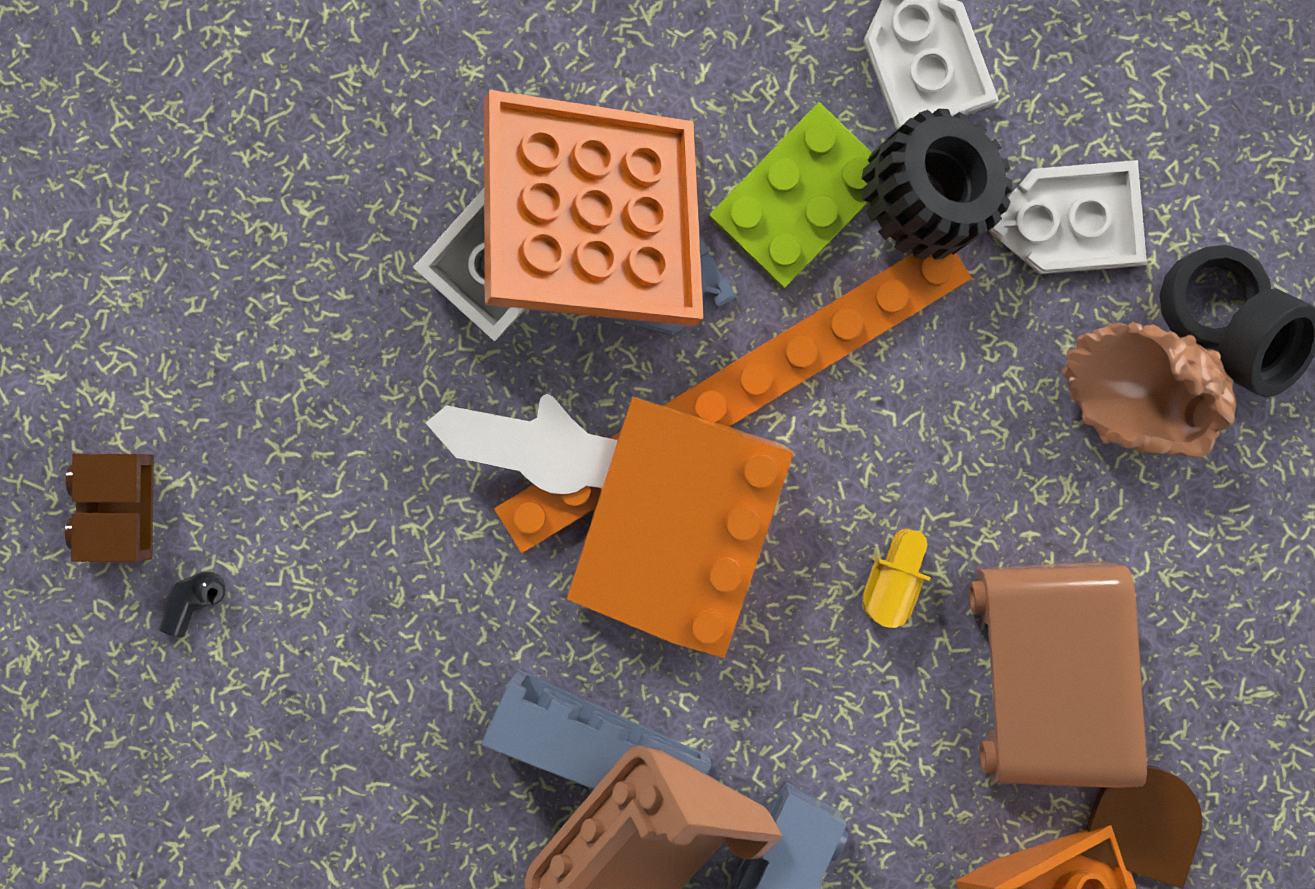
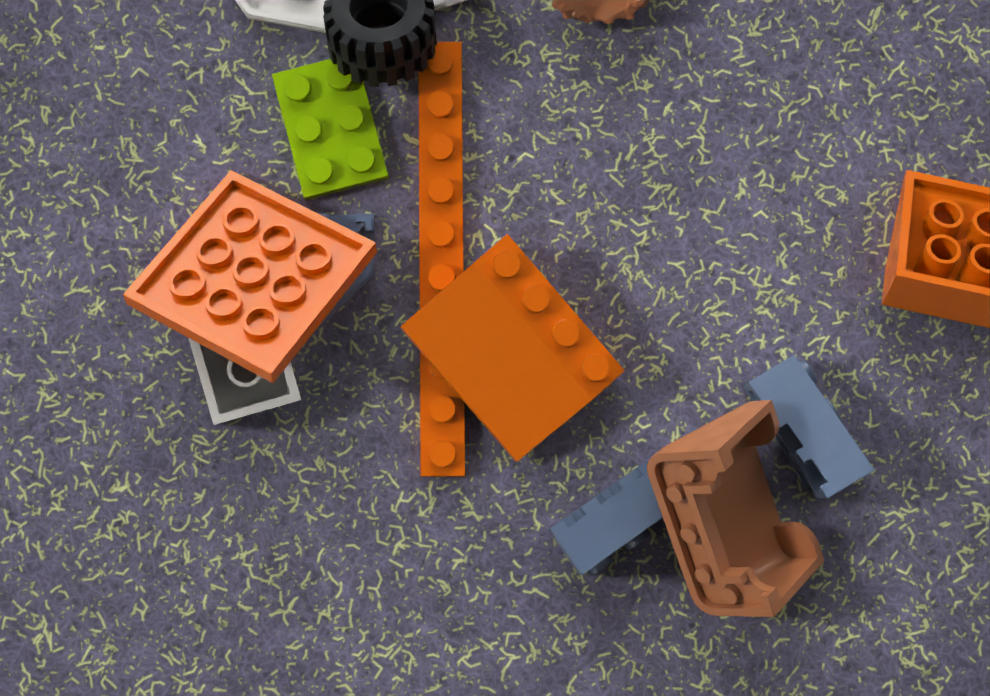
camera: 60 degrees left, 5 degrees down
(547, 450) = (401, 411): white sticker -> none
(896, 581) = (642, 219): yellow arm -> none
(1063, 675) = (777, 143): nougat windscreen -> none
(1152, 825) = (921, 142): reddish brown tile -> none

